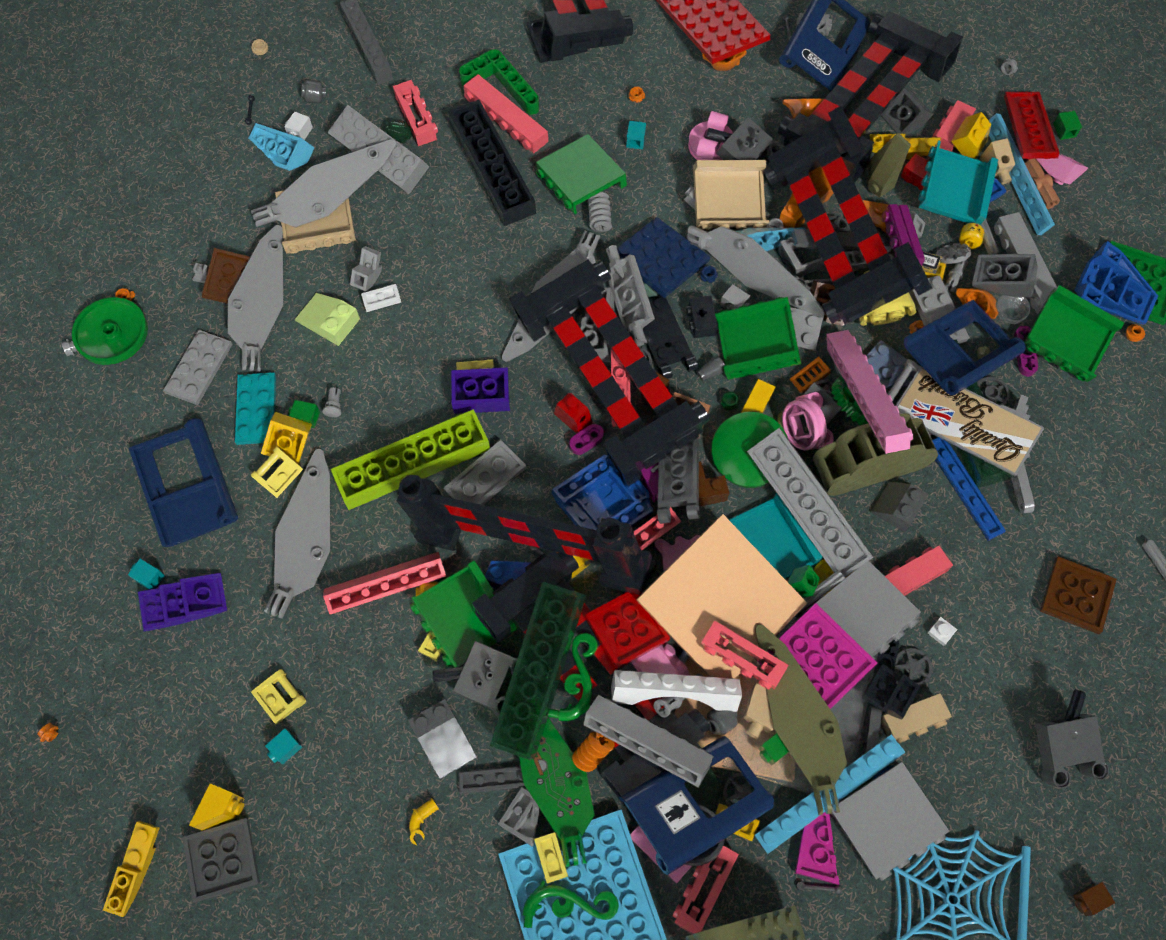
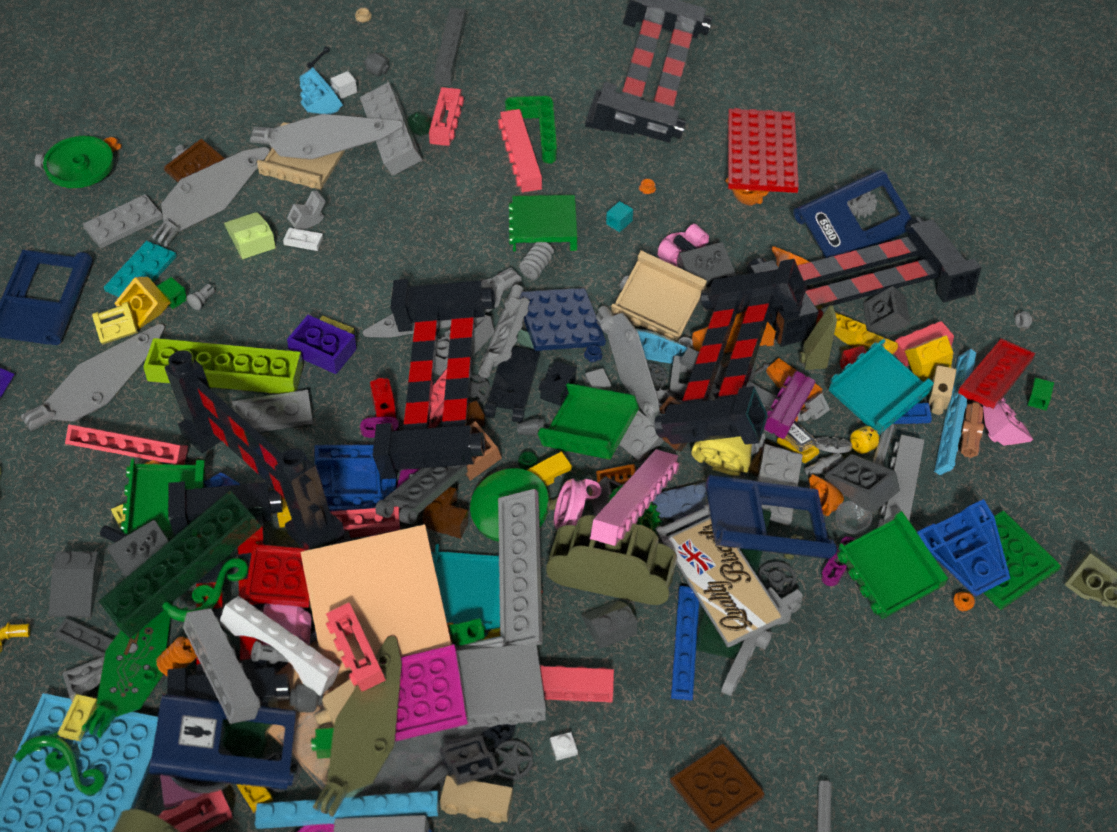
camera: 30 degrees right, 15 degrees down
(492, 162) = (475, 181): black brick -> none

